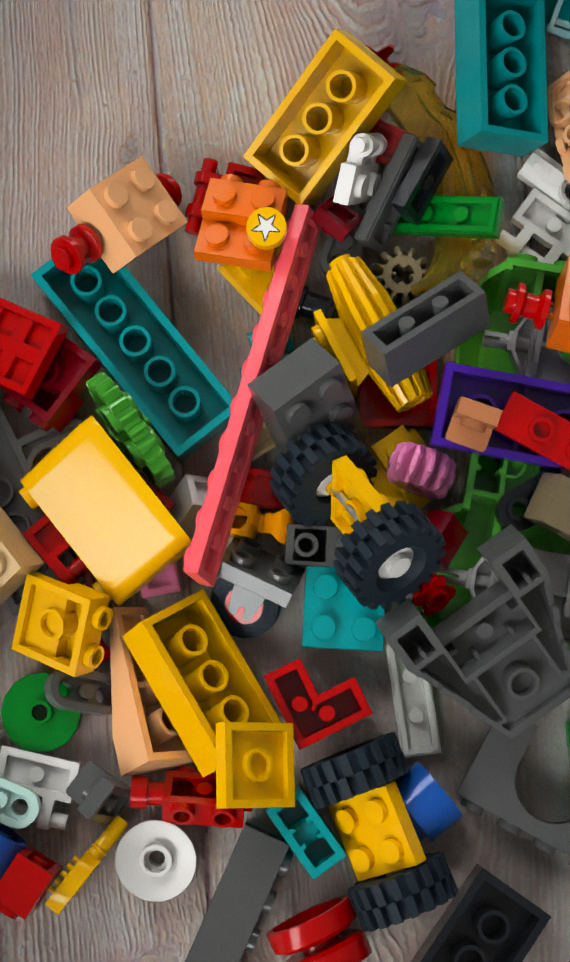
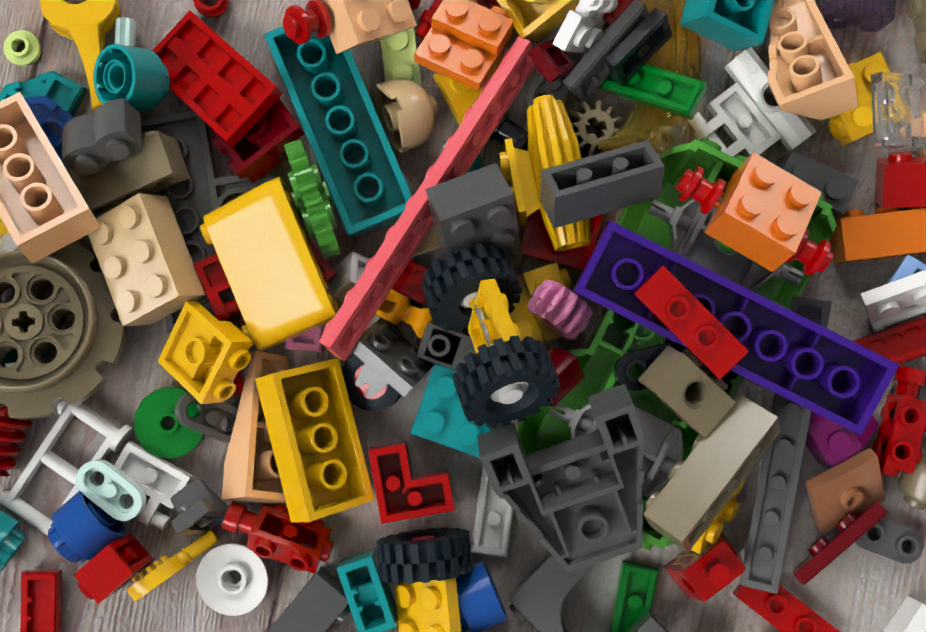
camera: 15 degrees right, 5 degrees up
(179, 268) = (399, 57): none -> yellowish green plate
(200, 314) = (406, 113): none -> tan cylinder
(254, 765) = (335, 529): yellow plate -> none
(266, 228) = (484, 51): yellow tile -> none
(434, 595) = (538, 426): red plate -> none
(472, 424) = (616, 285): nougat bracket -> none

